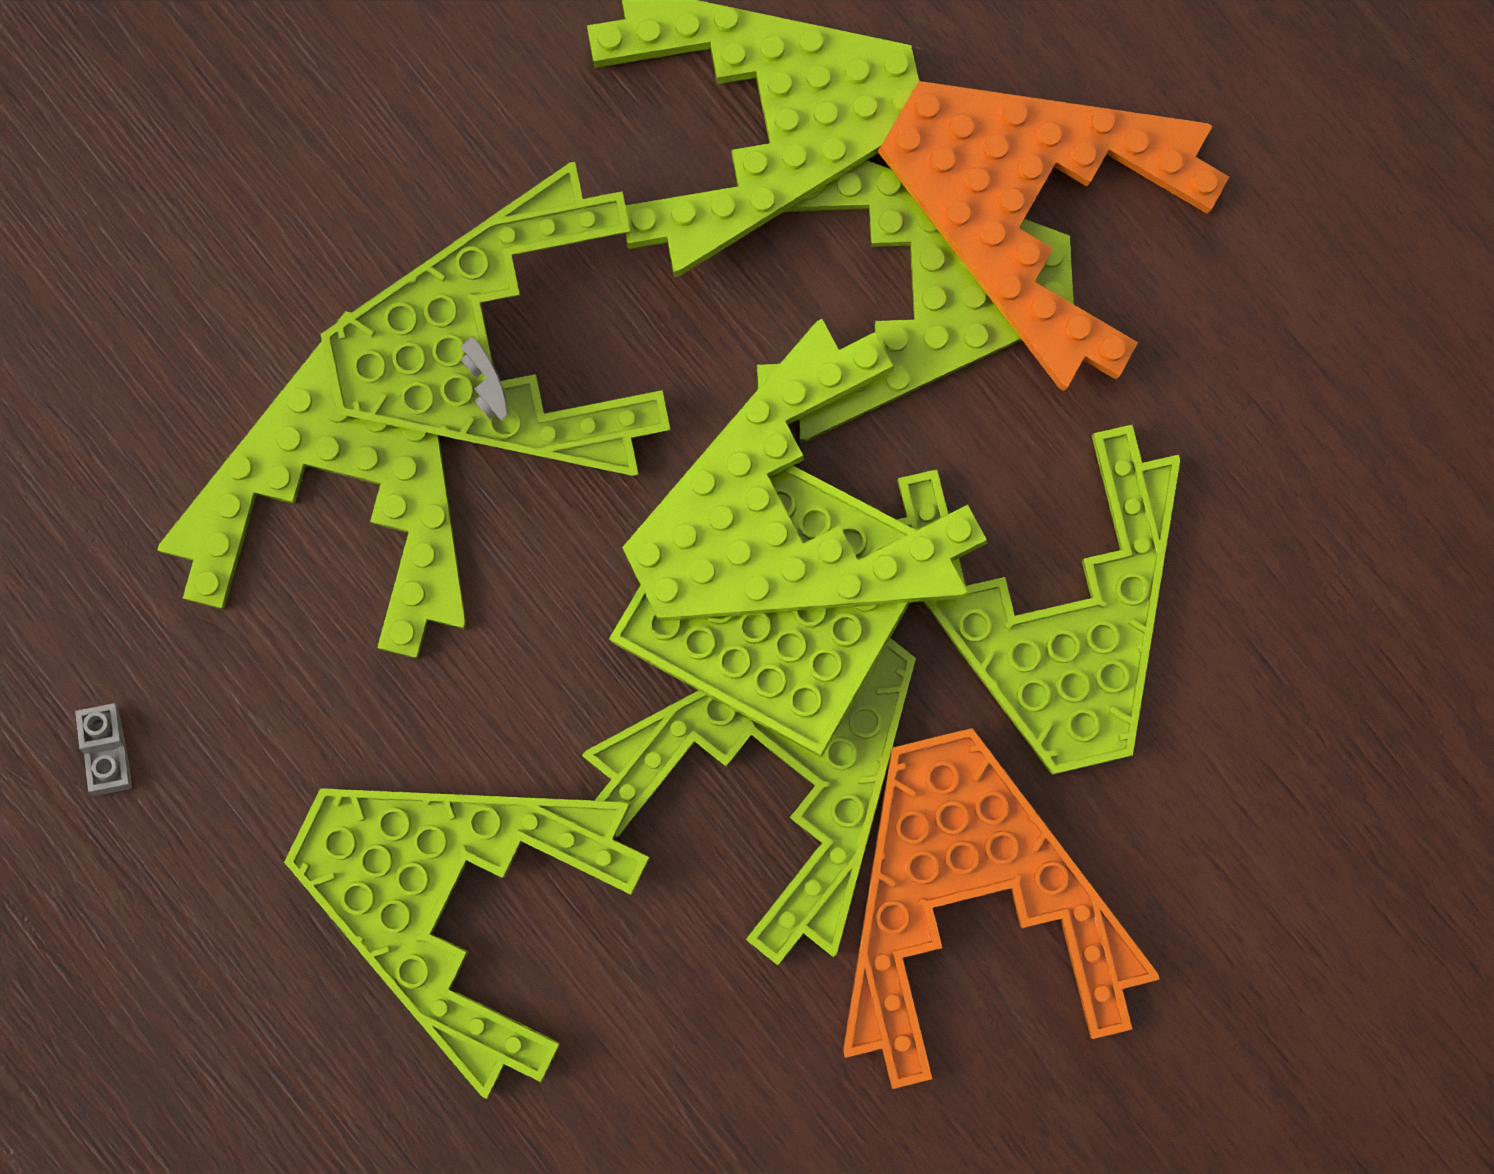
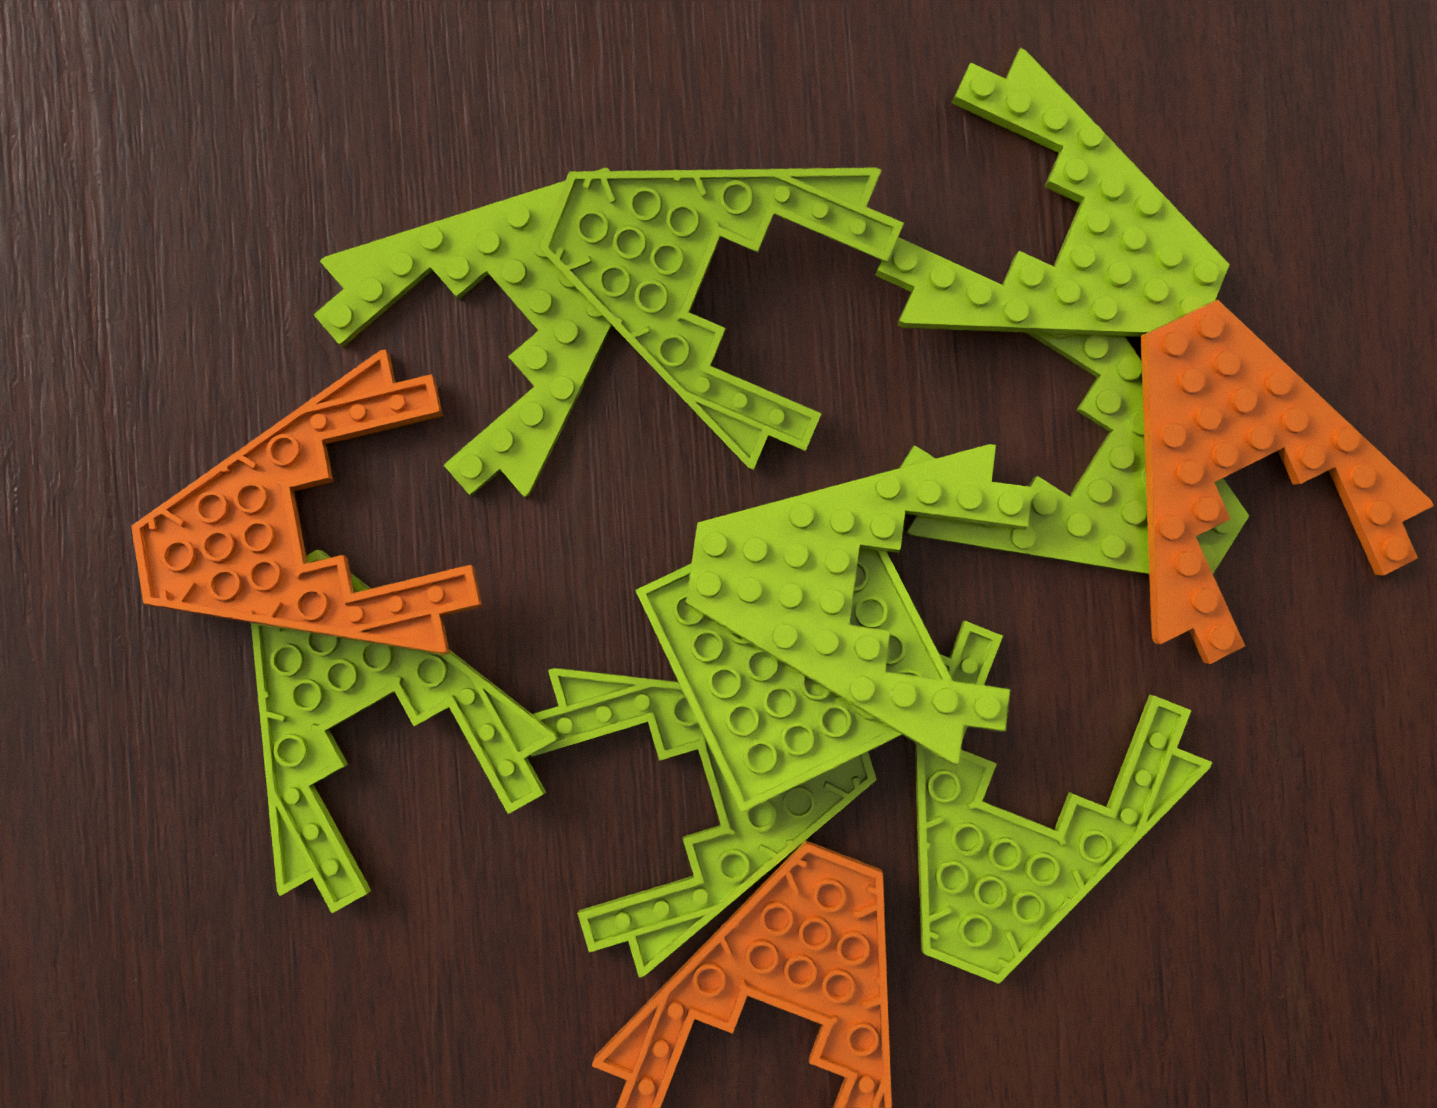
camera: 30 degrees right, 5 degrees up
(104, 749) = (168, 396): light grey slope -> none
(251, 828) = (237, 541): none -> orange wing
(491, 392) = (677, 318): light grey slope -> none

